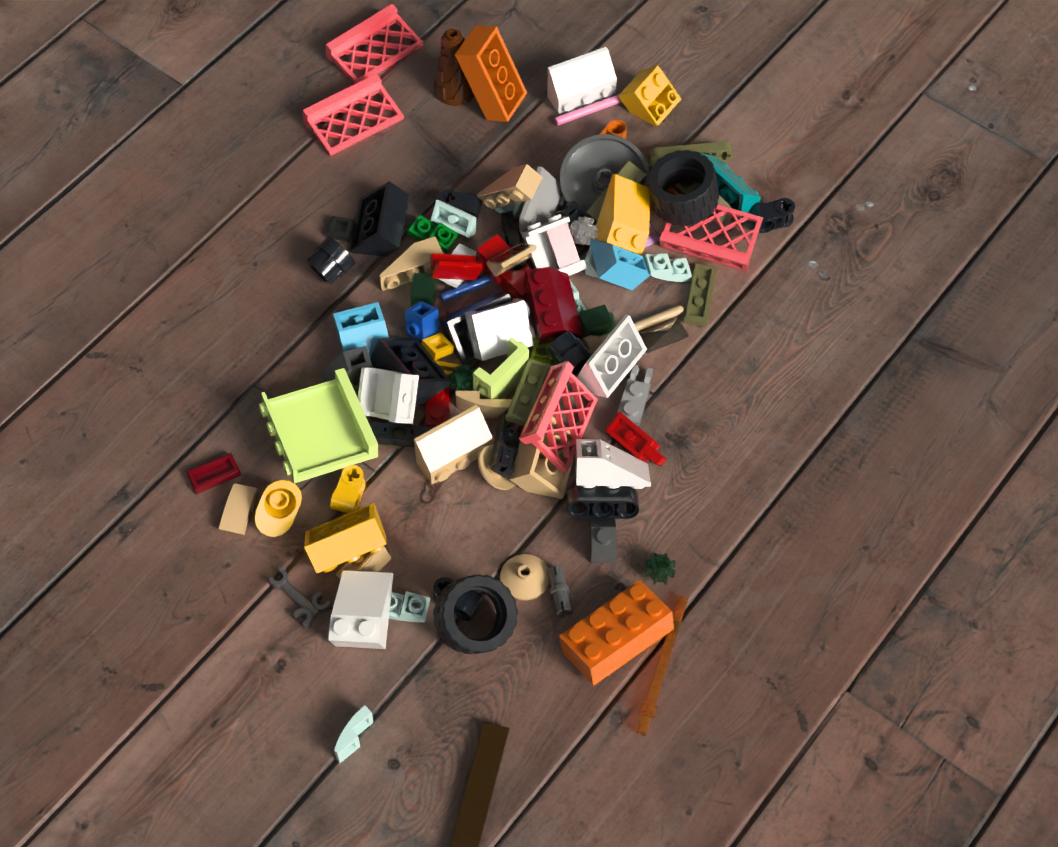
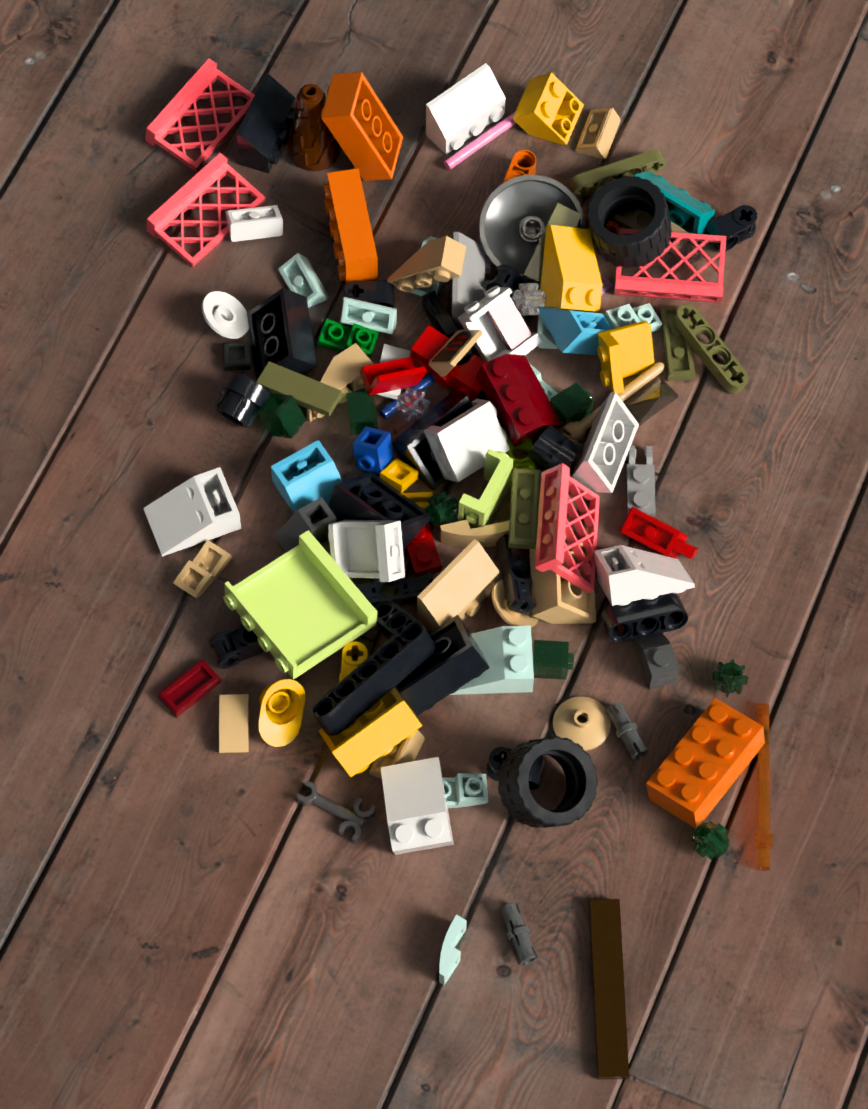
camera: 15 degrees left, 5 degrees up
(250, 387) = (203, 570): none -> tan slope
(260, 448) = (237, 647): none -> black piece
(263, 338) = (193, 513): none -> white slope
(340, 194) = (225, 315): none -> white dish
(358, 279) = (282, 415): none -> clear green brick
(362, 494) = (404, 652): none -> black beam
(377, 260) = (305, 390): none -> olive tile
(388, 132) = (254, 223): none -> white slope
(413, 182) = (303, 279): none -> light aqua slope
(415, 735) = (518, 933): none -> dark grey pin
(416, 500) = (446, 670): none -> black slope
(417, 61) = (266, 125): none -> black slope
(461, 148) = (350, 227): none -> orange brick
(464, 509) = (509, 658): none -> light aqua slope
(466, 293) = (412, 404): none -> clear gear
(514, 518) = (552, 659): none -> clear green brick
(602, 697) = (710, 840): none -> clear green gear
(651, 291) = (624, 353): none -> yellow bracket
(686, 122) = (598, 133): none -> tan slope
(721, 304) = (706, 350): none -> olive beam

